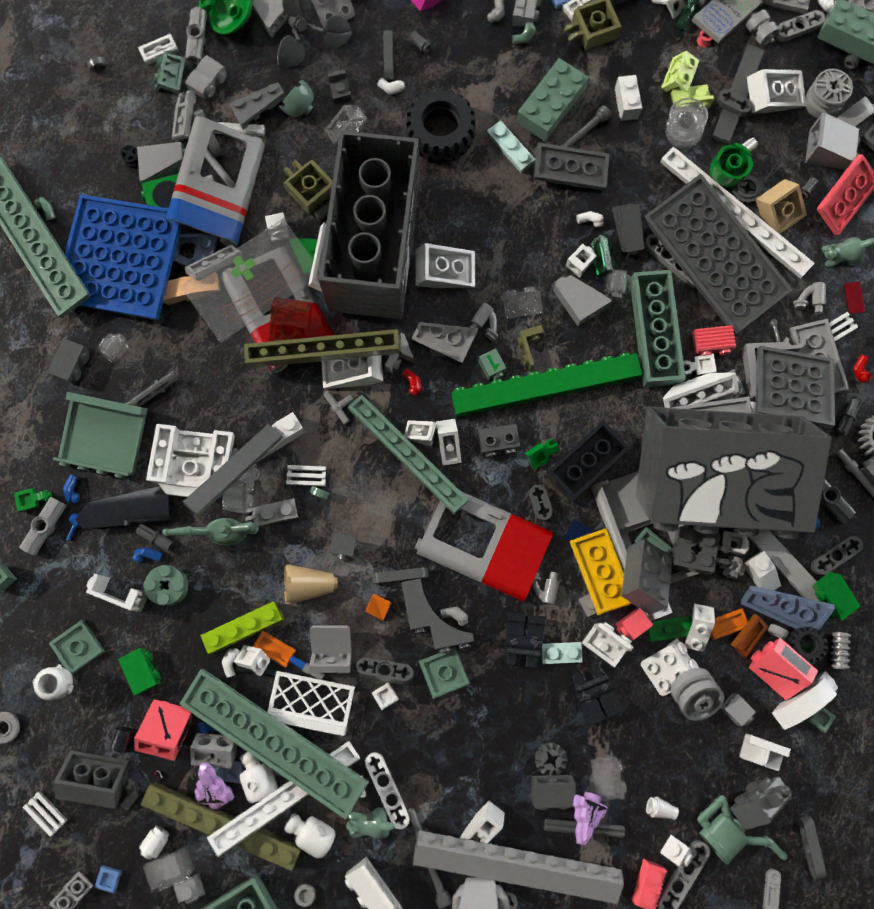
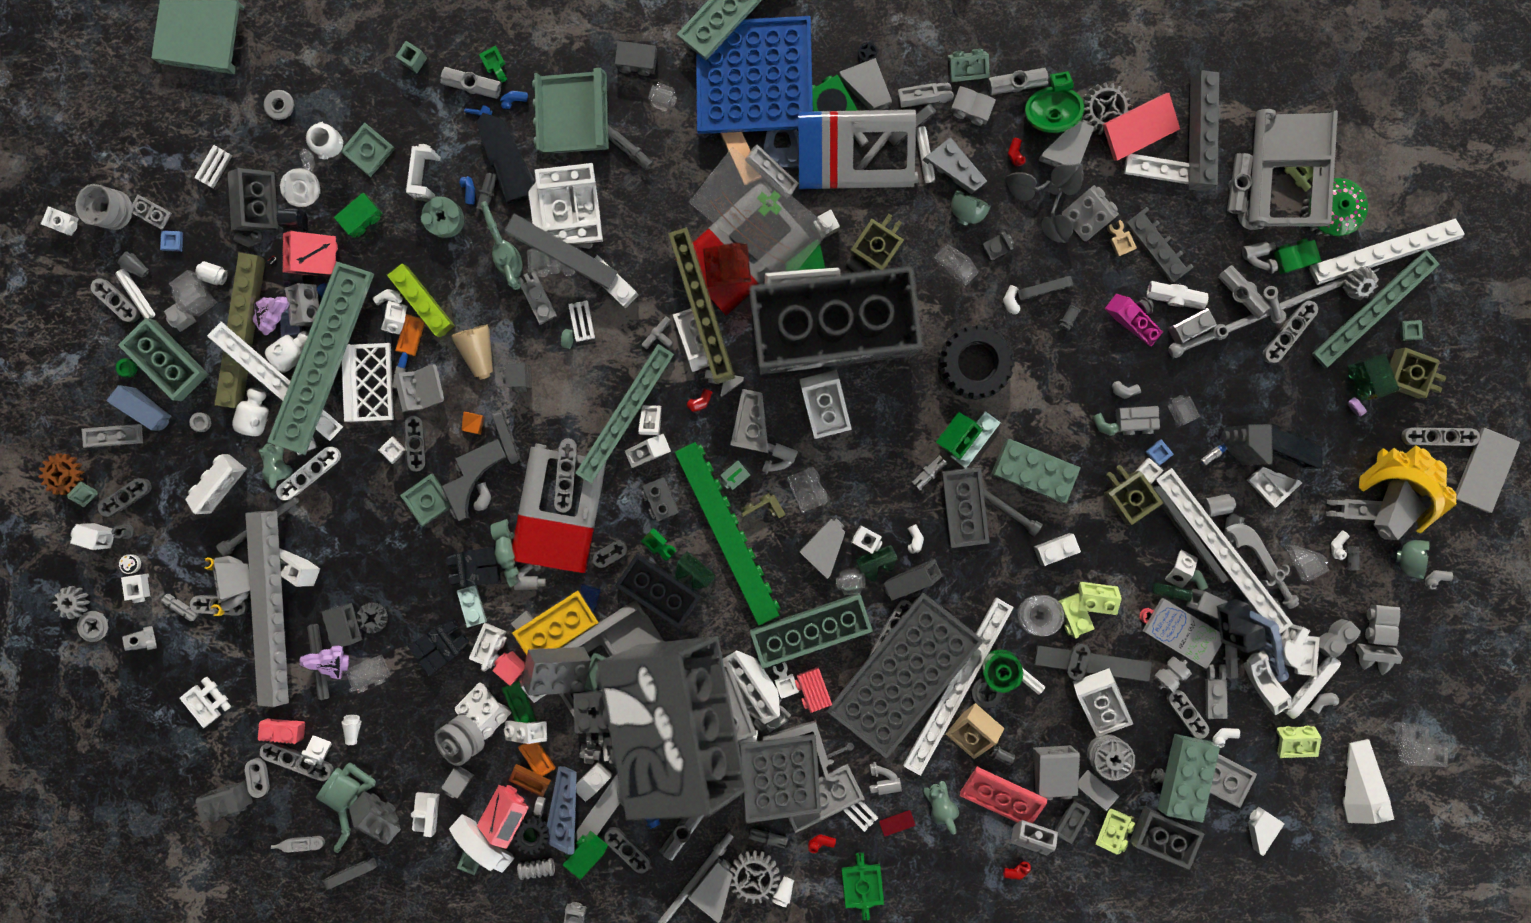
camera: 75 degrees right, 10 degrees up
(71, 711) = (307, 160): none -> clear arm
(93, 725) = (300, 187): none -> white tile
(152, 55) = (985, 46): white tile -> none
(265, 53) = (1014, 154): none -> red arm
(452, 528) = (565, 475): none -> light grey beam
(504, 156) = (959, 435): none -> green brick
(514, 602) = (504, 550): none -> sand green piece
(531, 191) = (929, 472): none -> light grey pin
(568, 428) = (690, 565): none -> clear green tile

